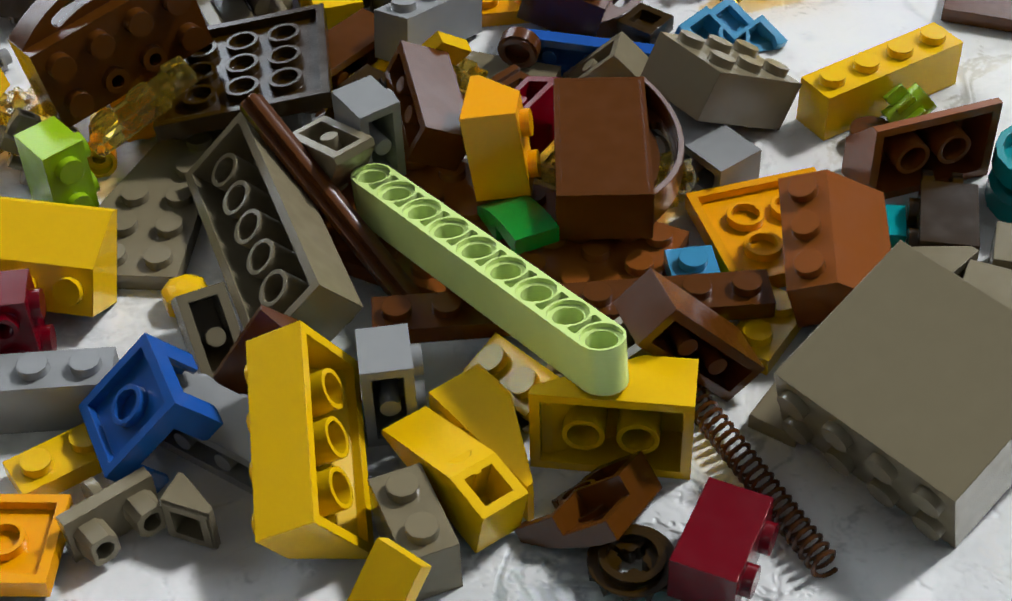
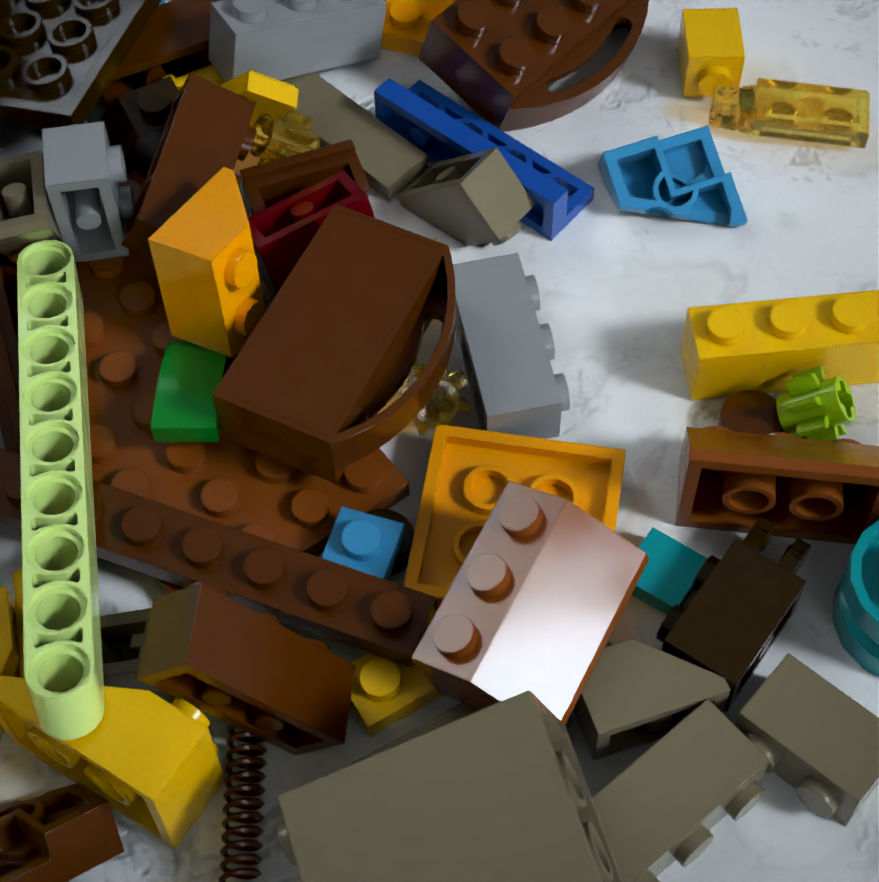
camera: 25 degrees right, 15 degrees up
(519, 47) = (379, 113): reddish brown tile -> none
(645, 23) = (575, 128): dark brown plate -> none
(721, 80) = (573, 275): dark tan brick -> none

